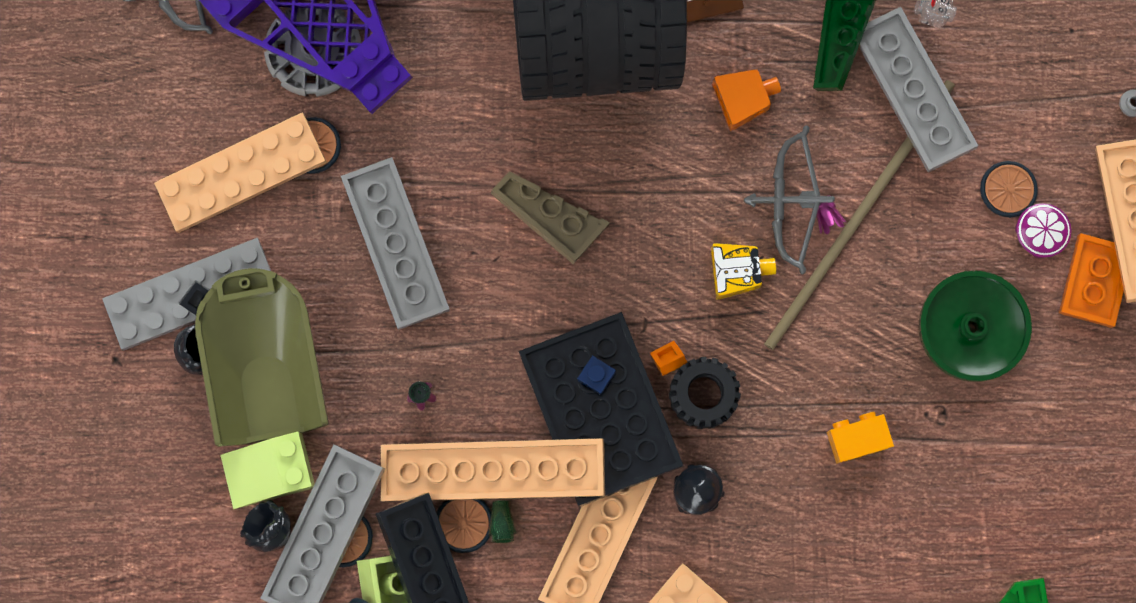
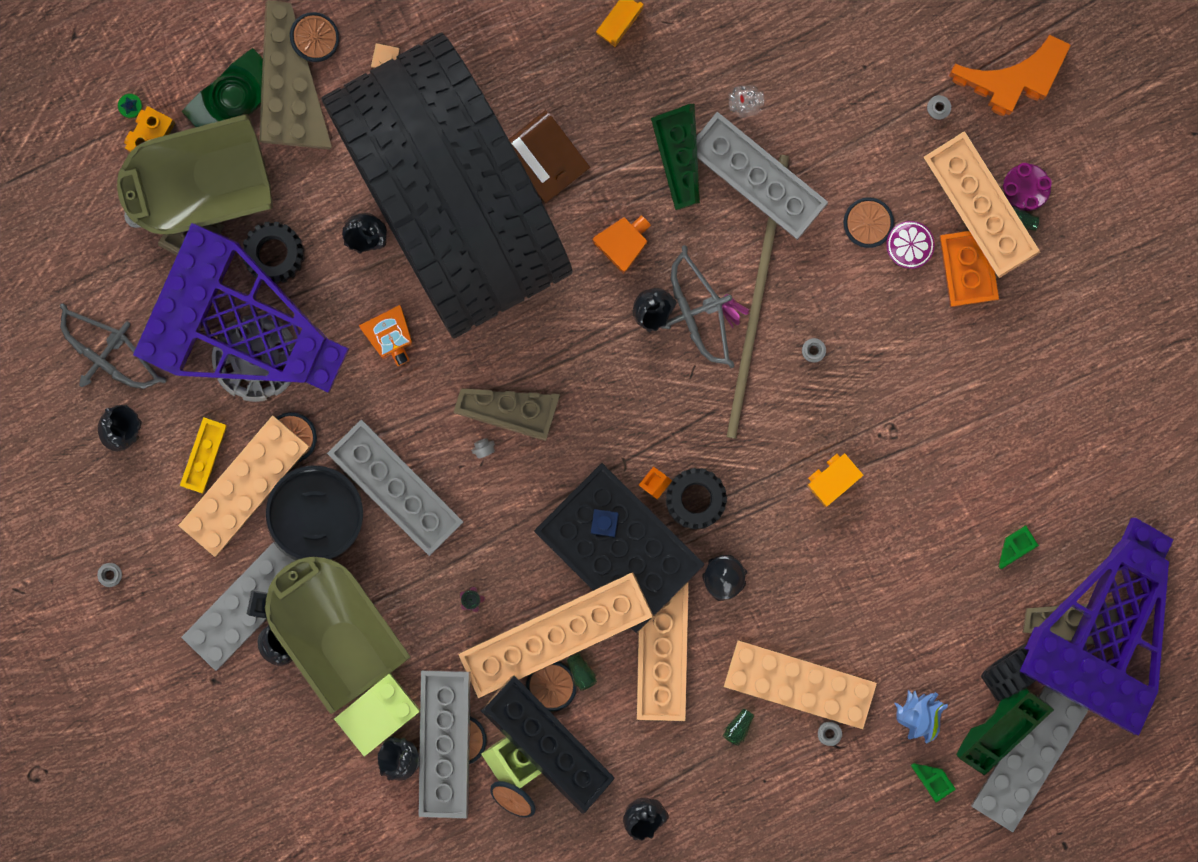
camera: 25 degrees left, 5 degrees up
(54, 196) = (102, 574): none -> light grey plate
(139, 55) = (119, 427): none -> black hair
(213, 123) = (203, 455): none -> yellow plate
(298, 231) = (314, 513): none -> black brick
(461, 84) = (389, 335): none -> orange torso
(505, 242) = (483, 448): none -> light grey plate
(738, 269) = (680, 386): torso -> none
(746, 176) = (653, 308): none -> black hair
(901, 288) = (821, 350): none -> light grey plate
(996, 312) = (905, 334): dark green dish -> none

